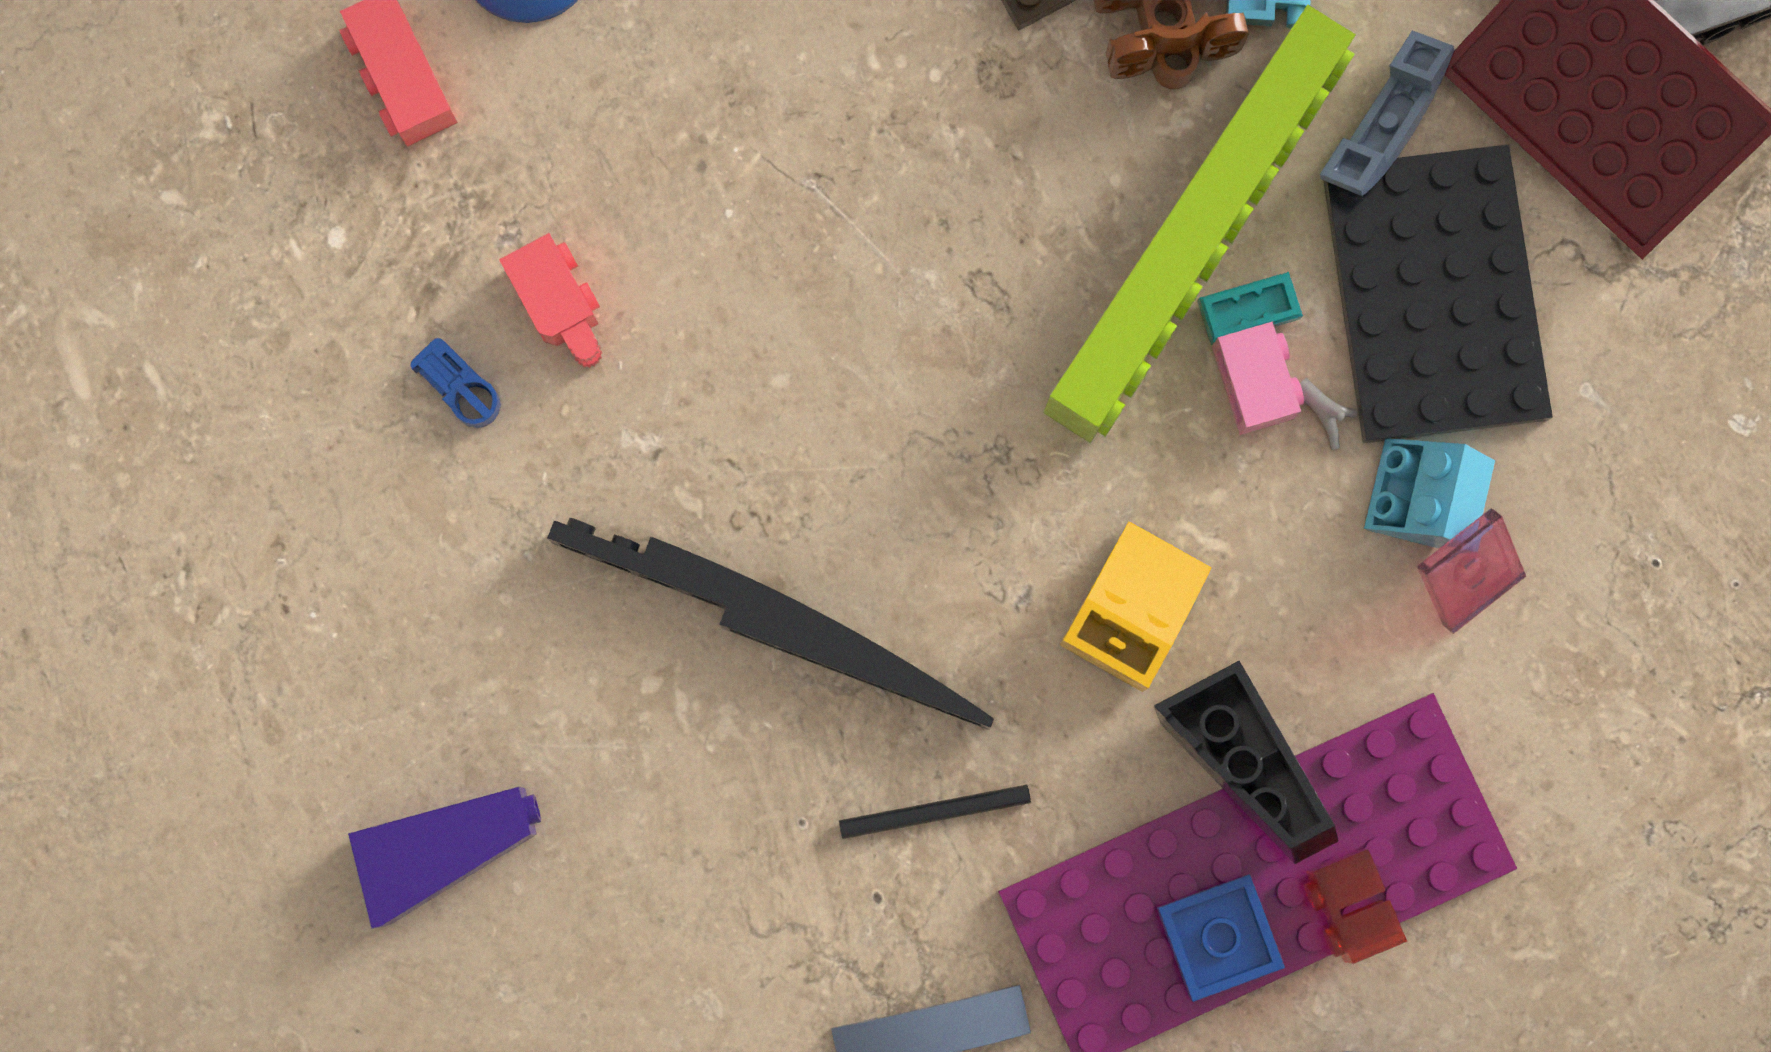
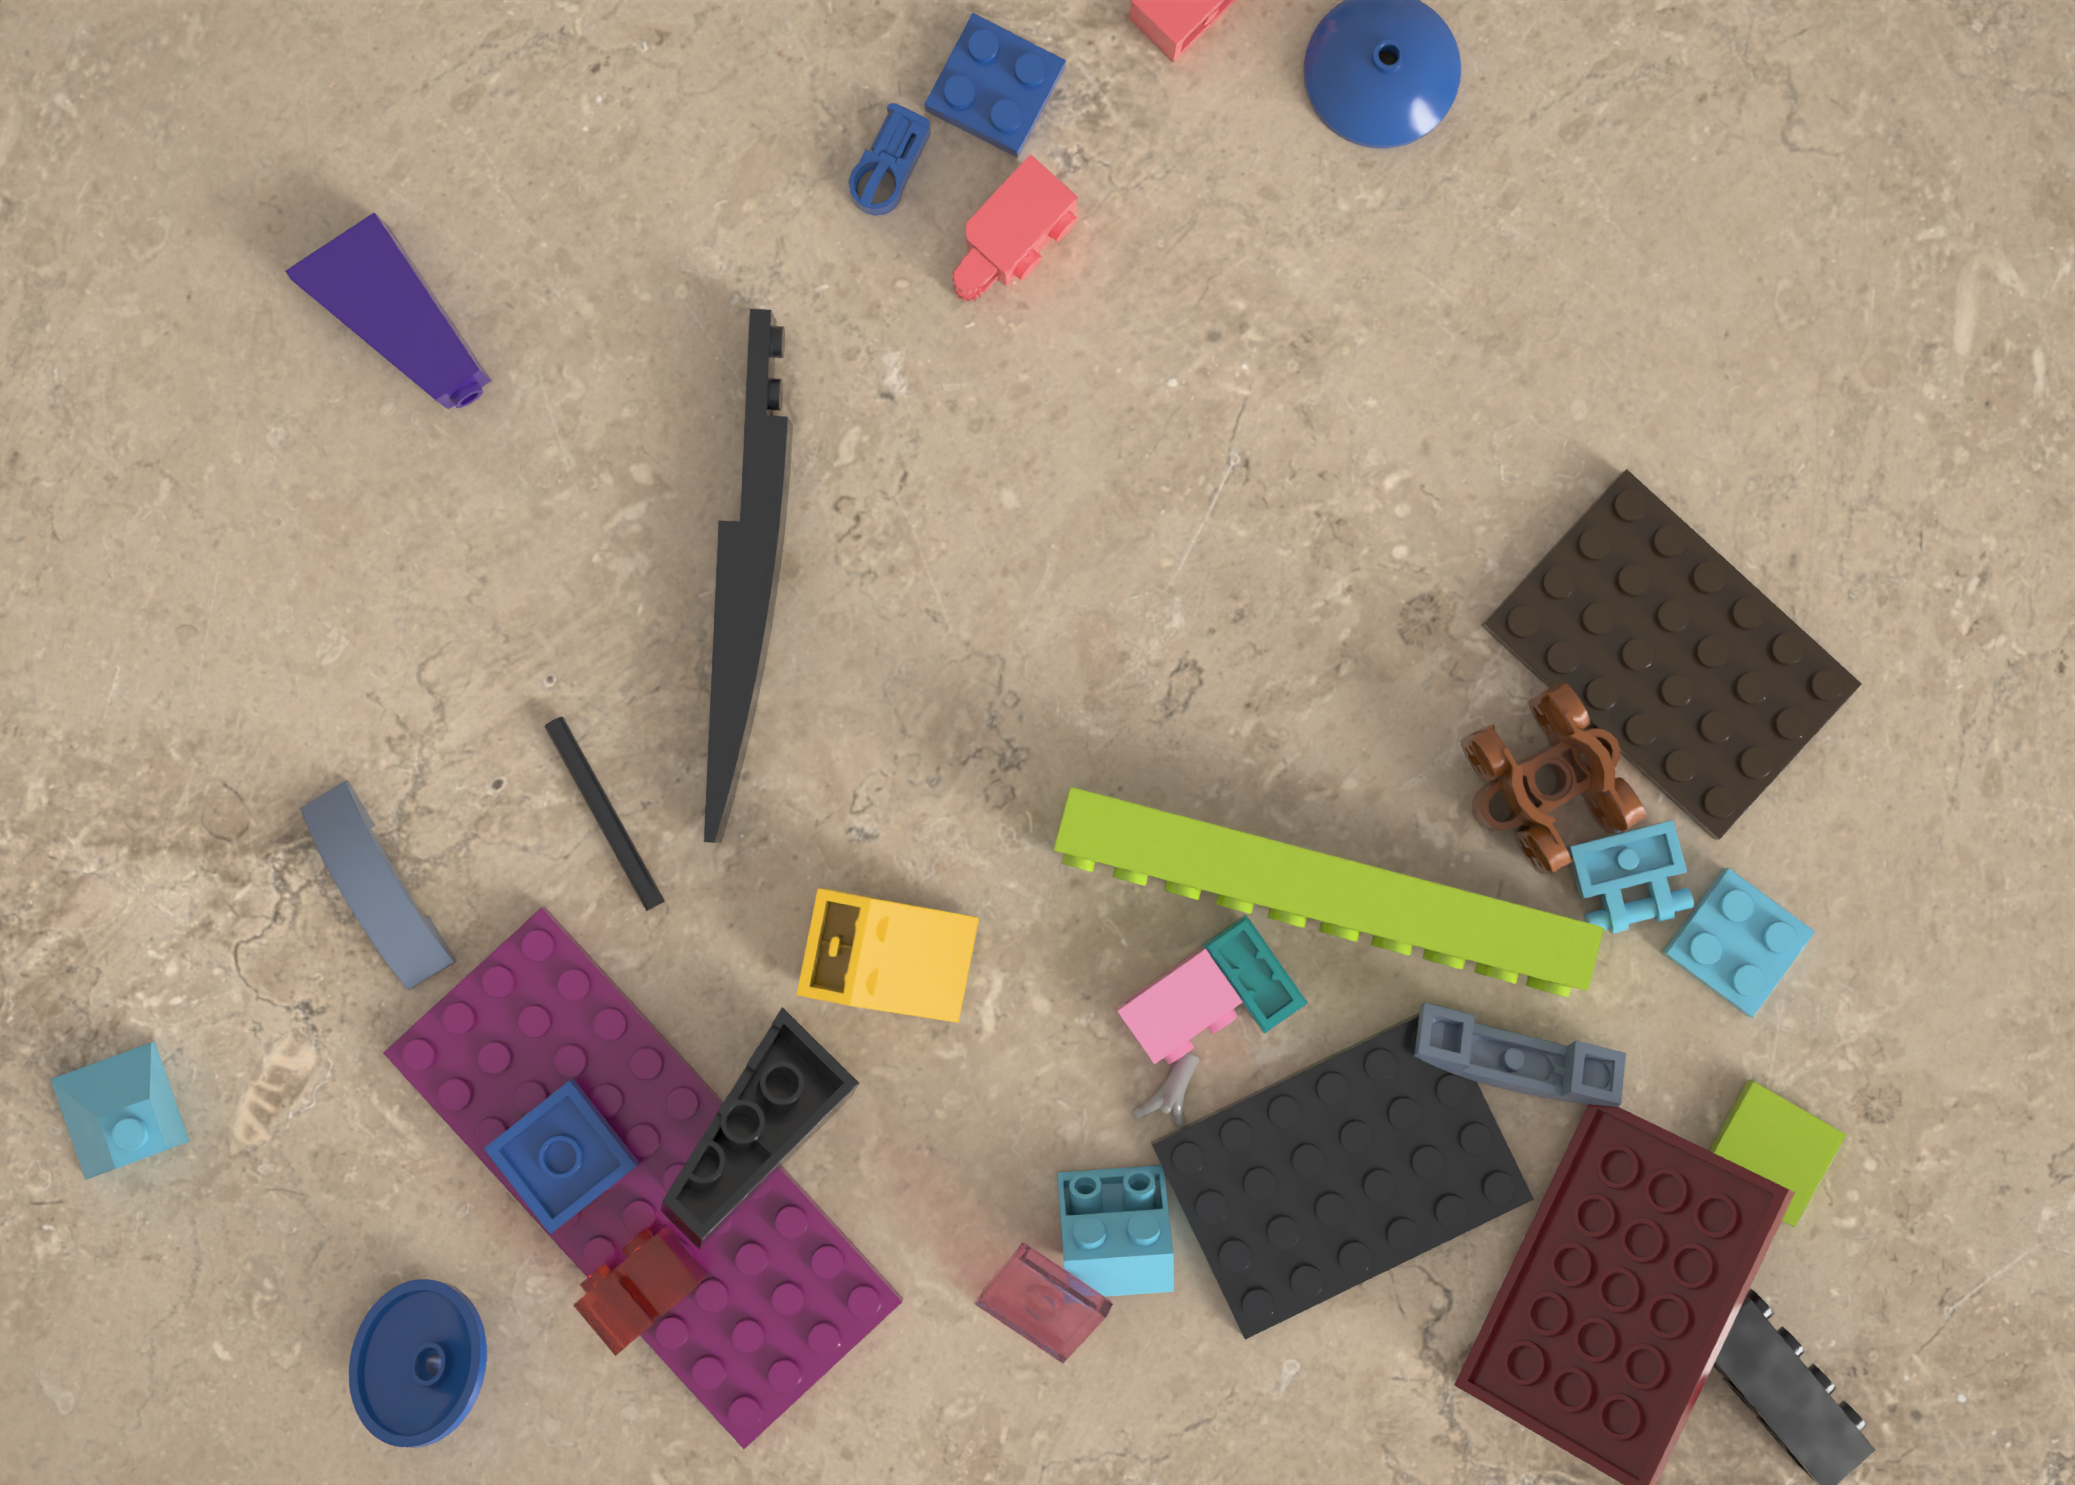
camera: 70 degrees right, 5 degrees up
(425, 274) = (995, 85): none -> blue plate

